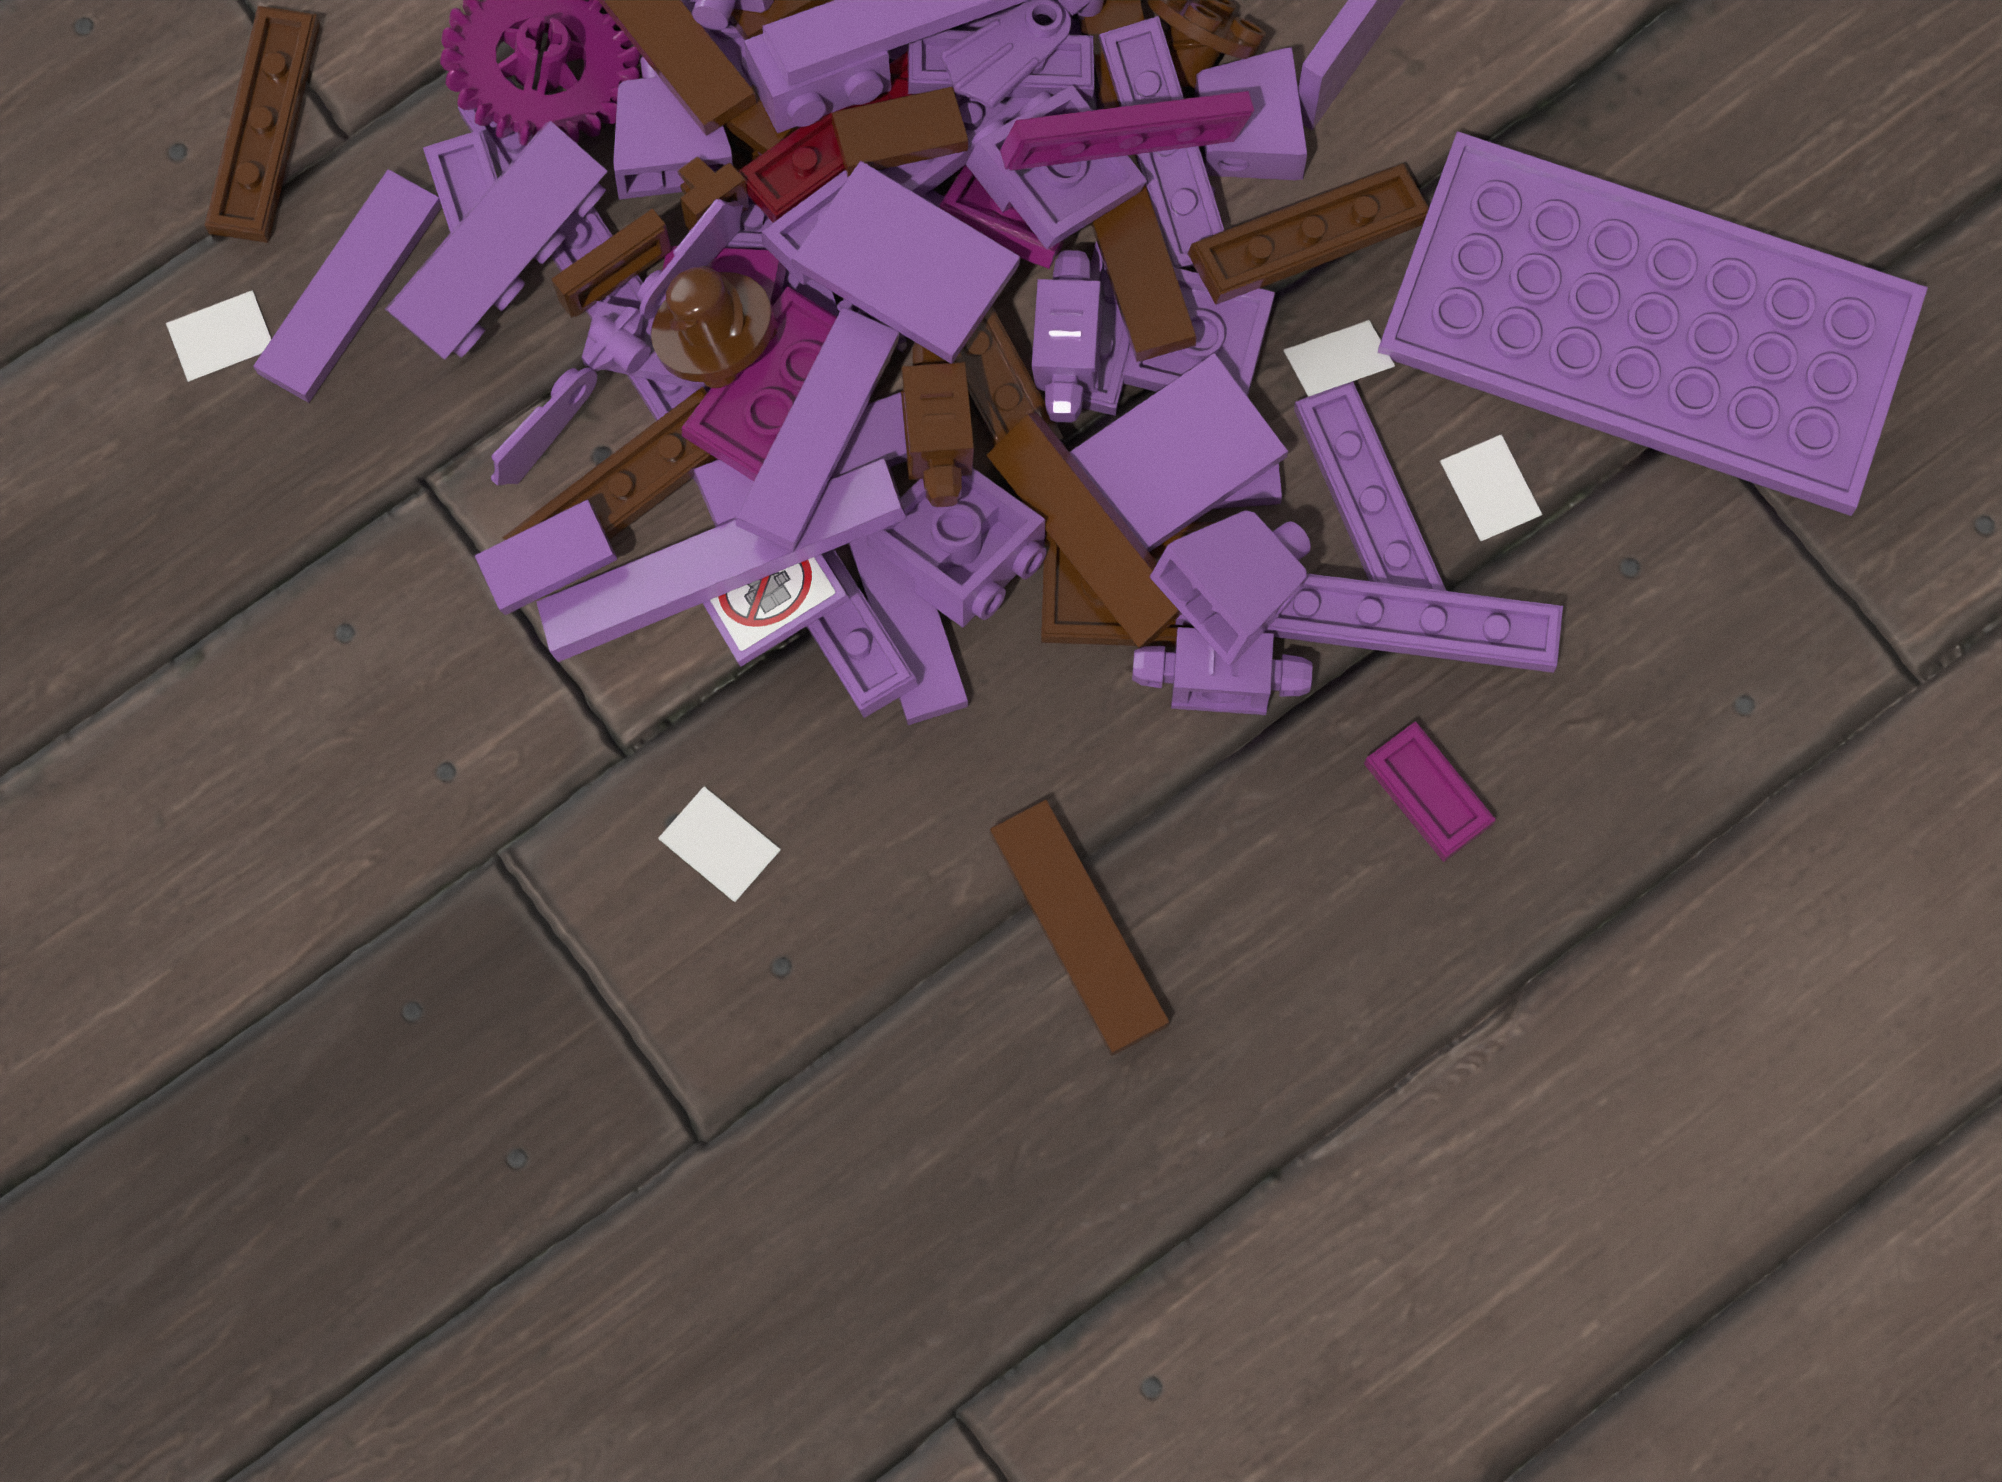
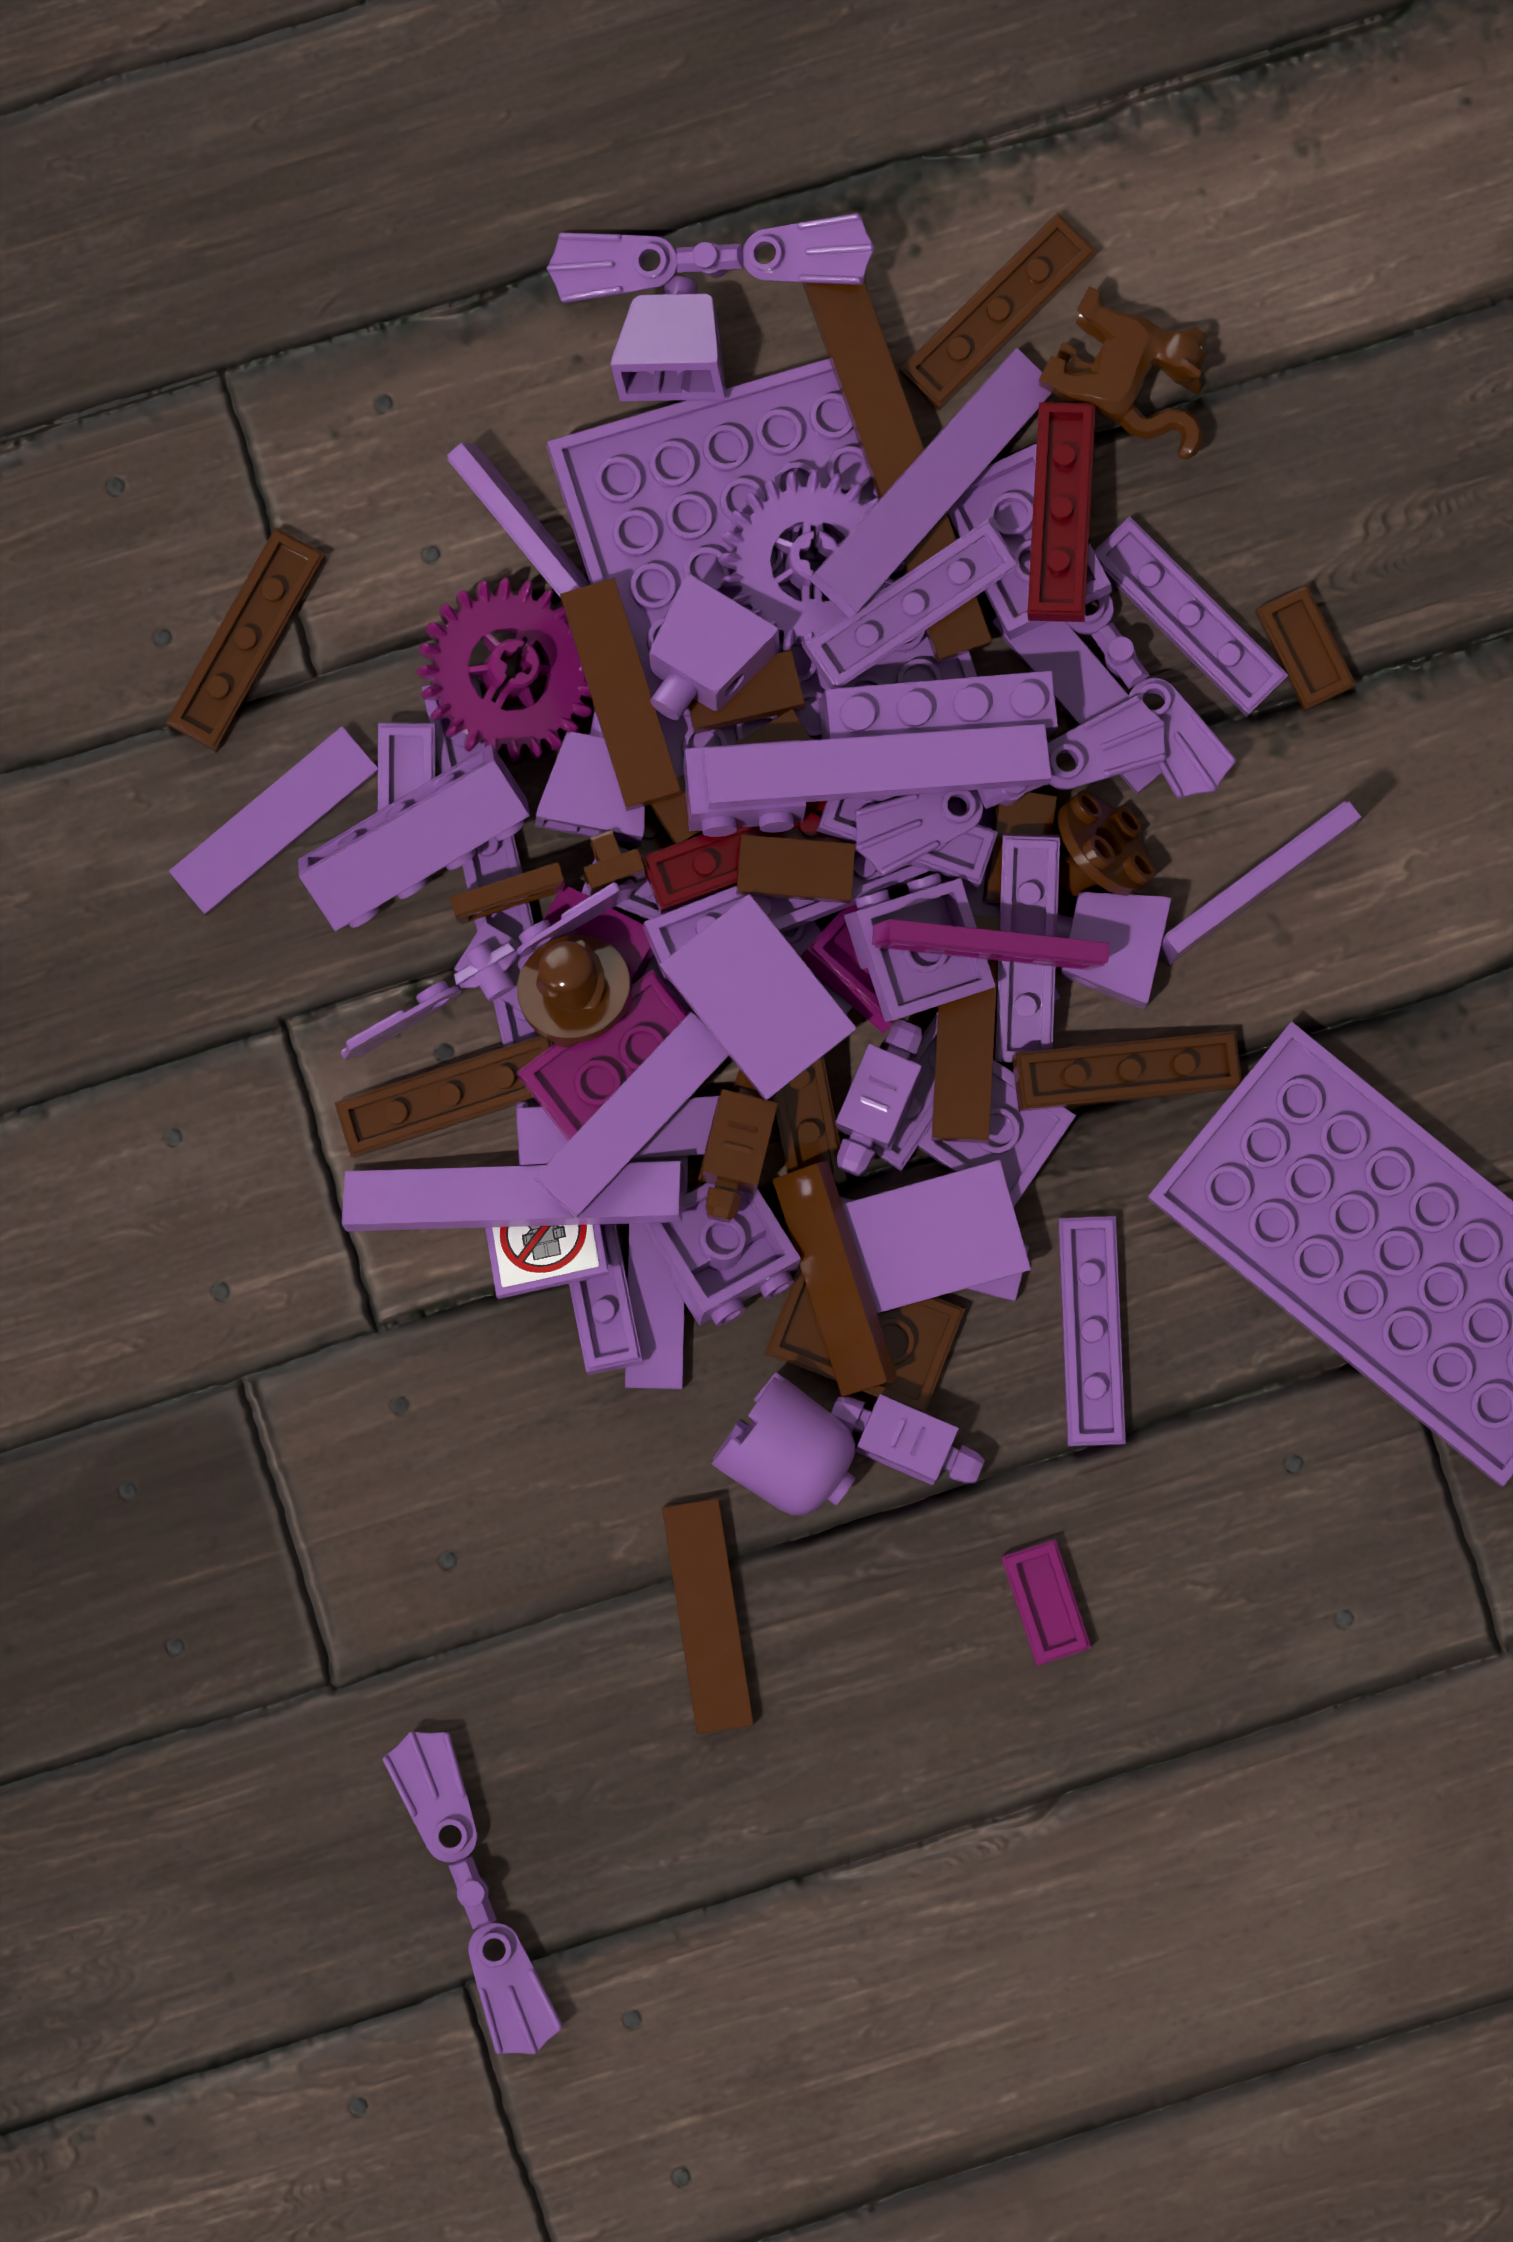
camera: 15 degrees right, 10 degrees up
(219, 335) = (148, 826): white sticker -> none
(546, 557) = (365, 1139): medium lavender tile -> none
(719, 844) = (431, 1436): white sticker -> none
(1006, 1396) = (509, 1988): none -> medium lavender piece
(1107, 718) = (790, 1451): none -> medium lavender cylinder
(1233, 579) = (940, 1376): medium lavender torso -> none
(1338, 358) = (1111, 1190): white sticker -> none
(1421, 622) = (1050, 1435): medium lavender tile -> none
(1491, 487) = (1201, 1351): white sticker -> none

